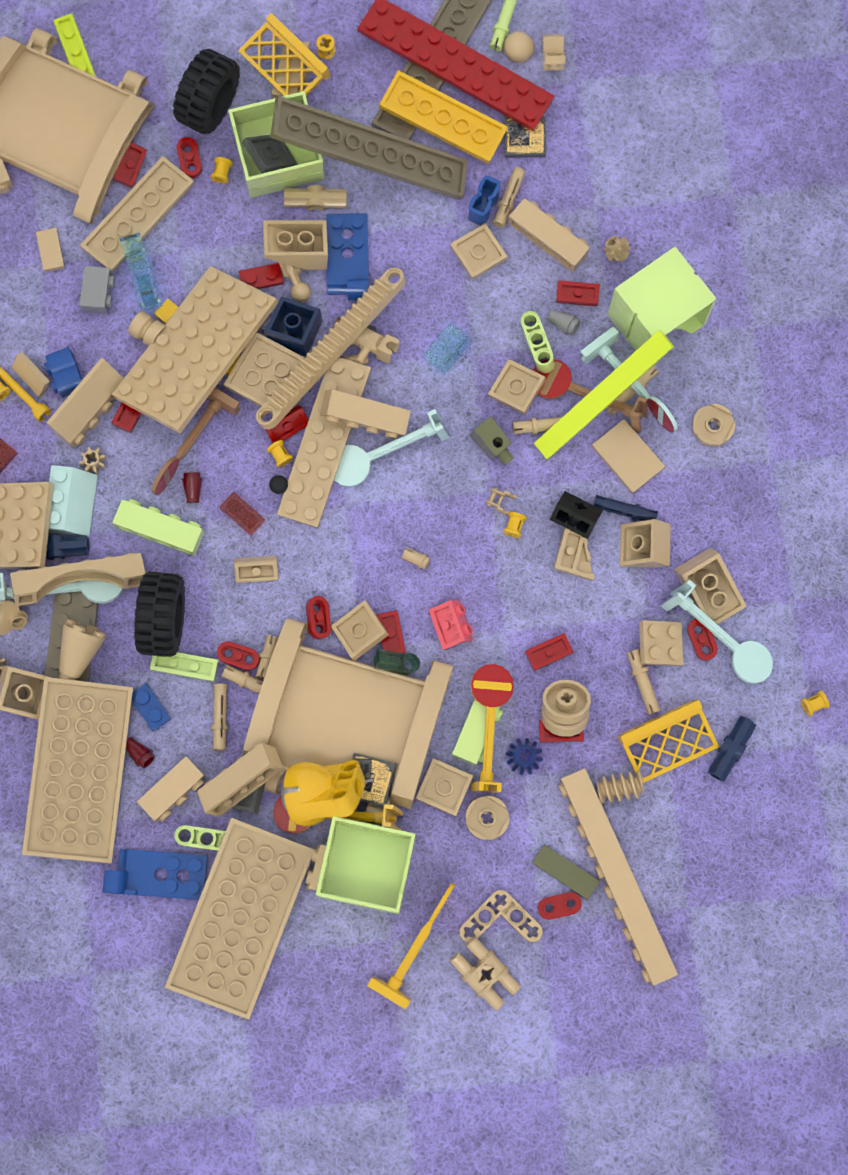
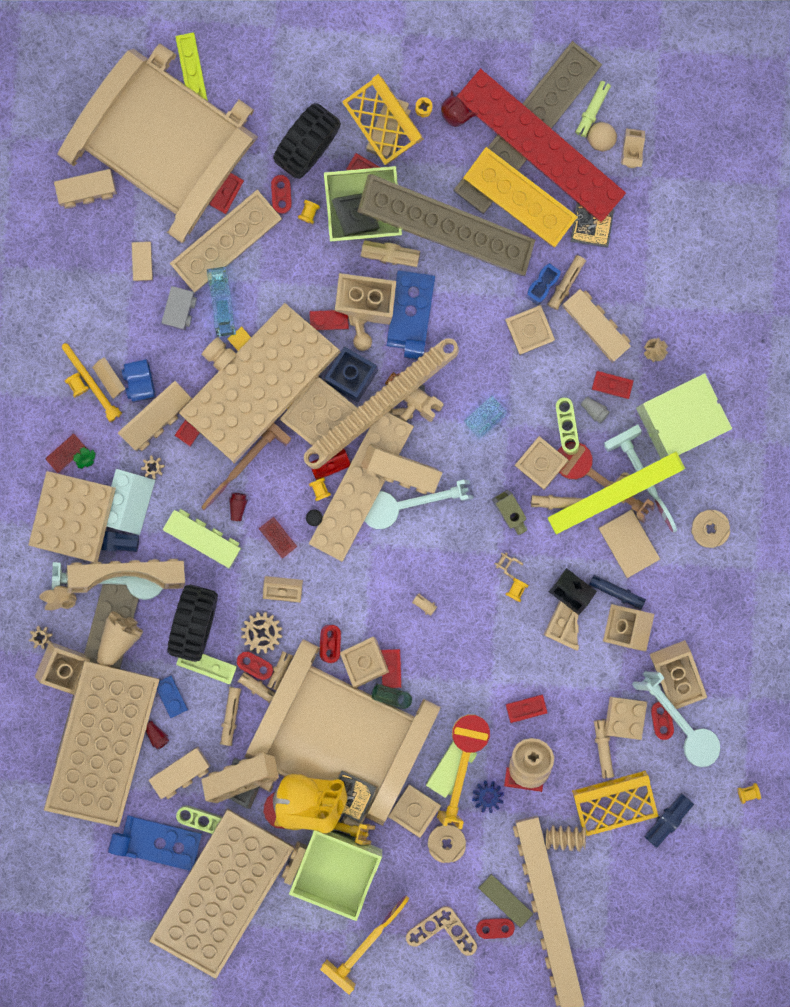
camera: 10 degrees right, 10 degrees up
(15, 463) = (84, 458): none -> green plant
(236, 627) = (272, 639): none -> tan gear
(360, 44) = (455, 111): none -> dark red hair
(451, 624) = (445, 669): coral bracket -> none
(473, 976) = (417, 983): tan pin -> none

